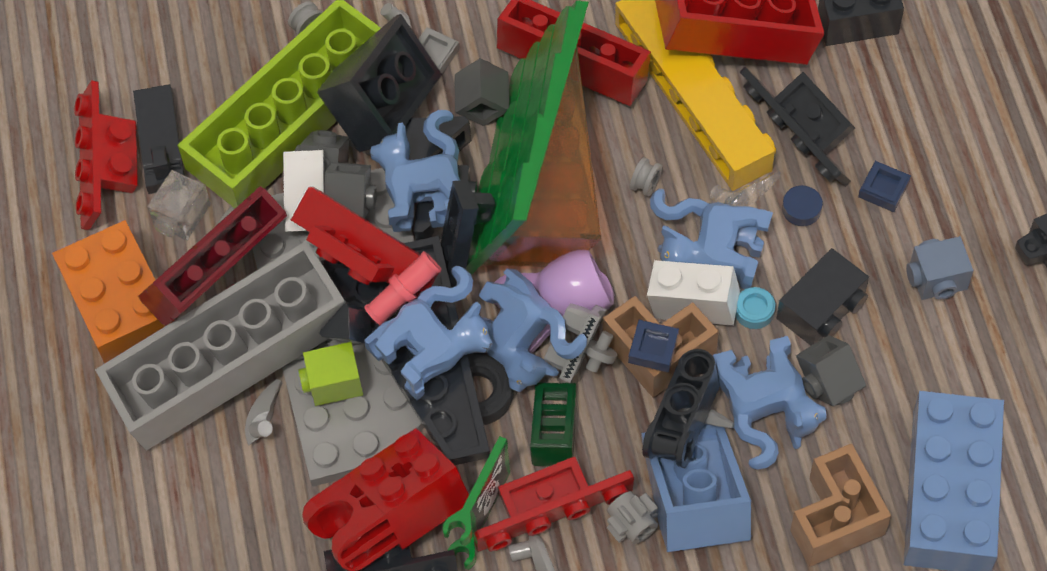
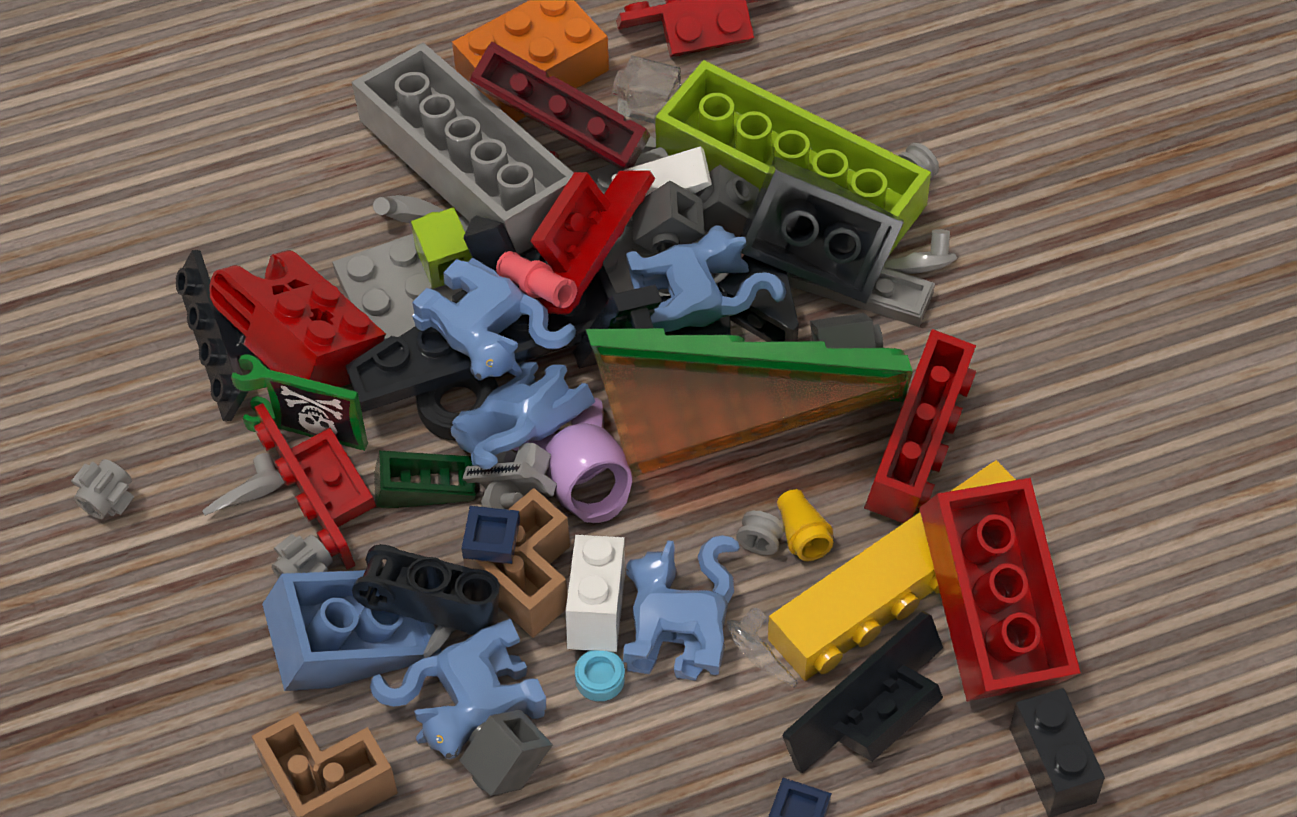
camera: 80 degrees right, 5 degrees down
(157, 134) = (750, 59): black hinge -> none
(645, 143) = (805, 528): none -> yellow cone
(802, 205) = (752, 715): dark blue tile -> none
(823, 298) = (614, 743): black brick -> none

